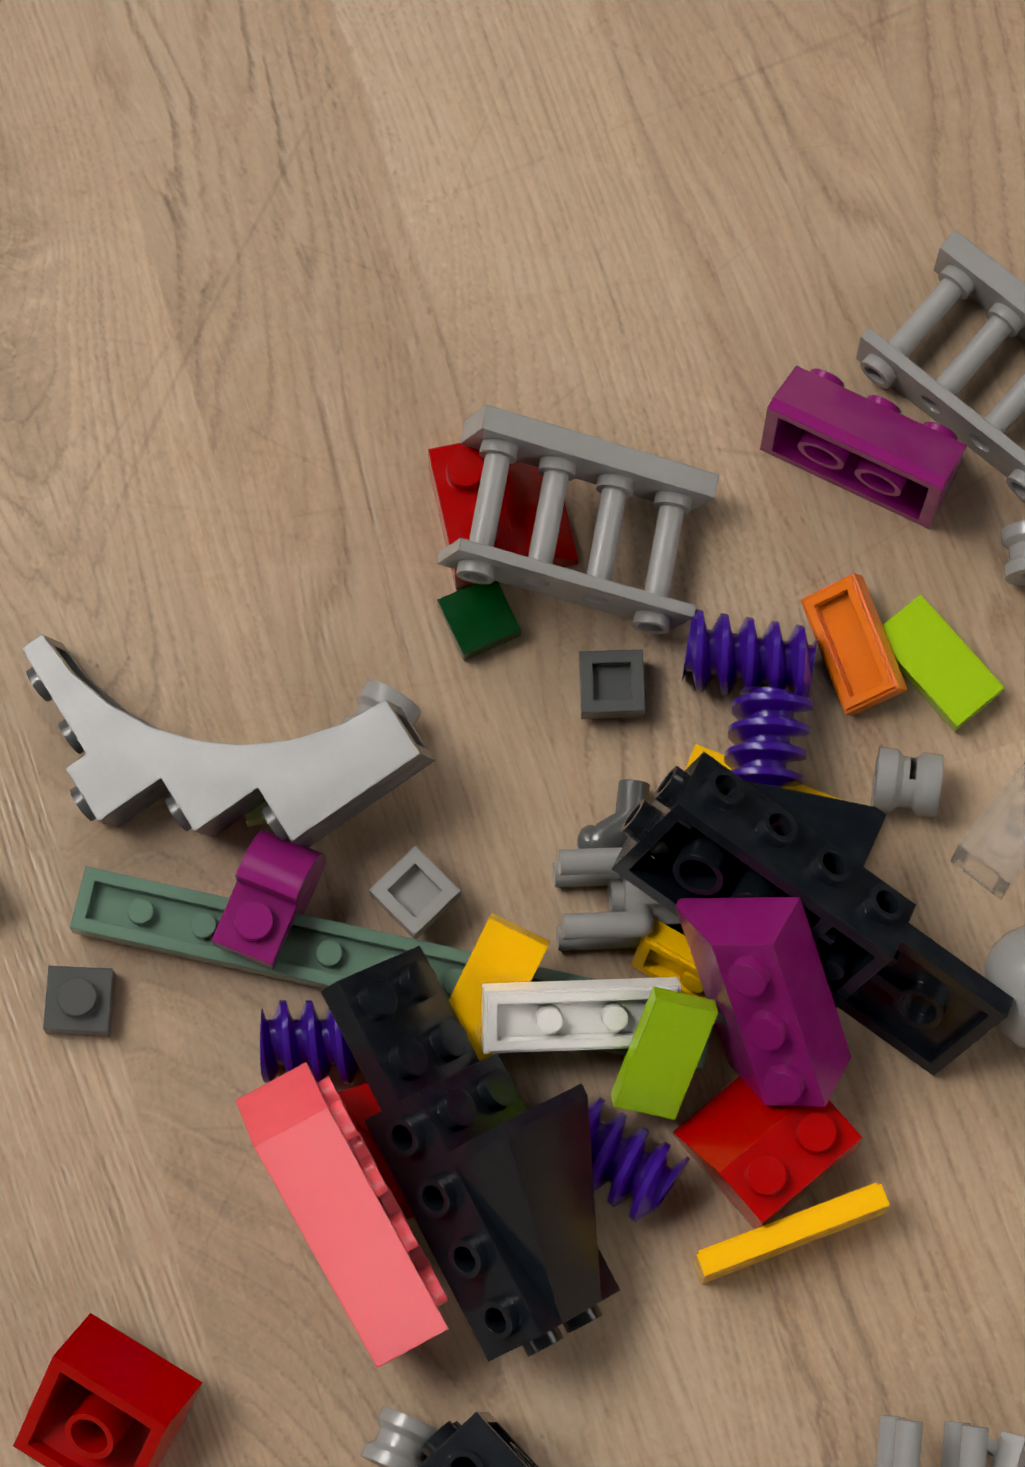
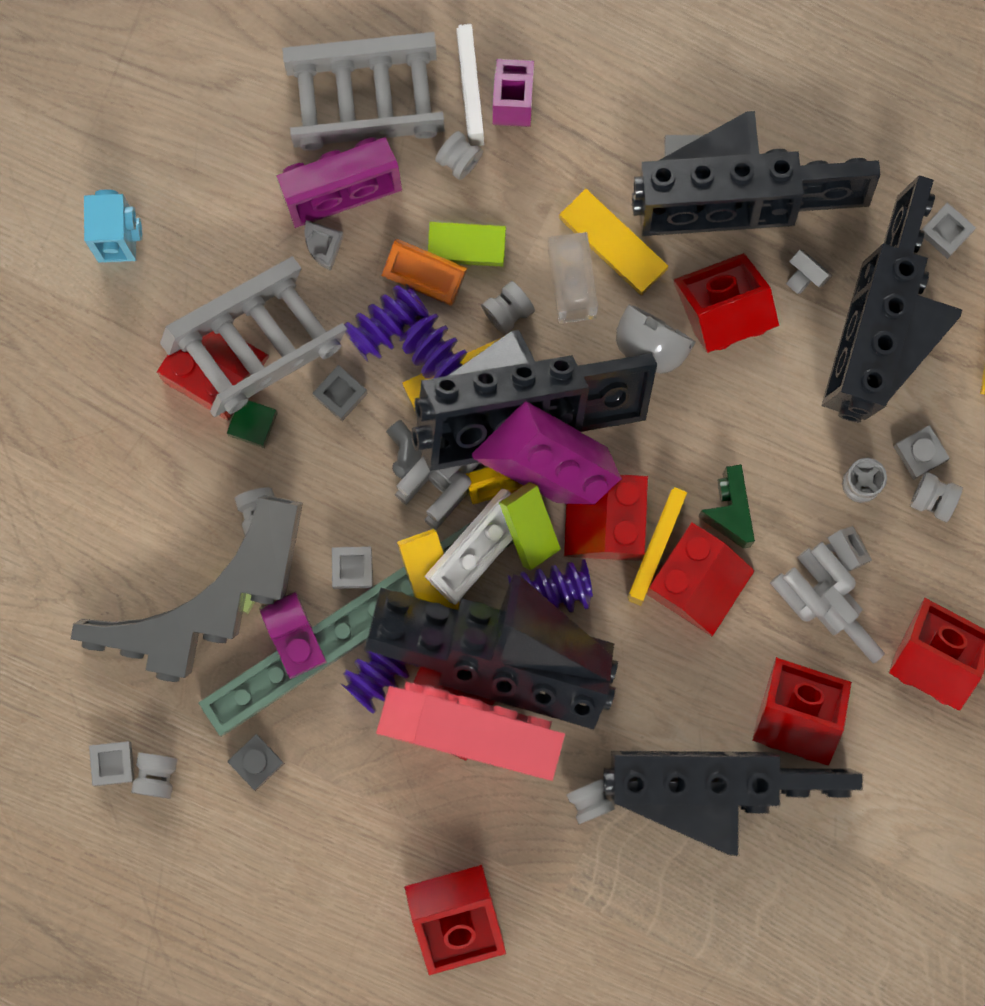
camera: 45 degrees left, 5 degrees up
(549, 240) = (111, 227): none -> medium azure brick
(773, 497) = (323, 243): none -> light grey tile
(801, 1325) = (701, 579): none -> red slope
(914, 1294) = (735, 519): none -> dark green slope

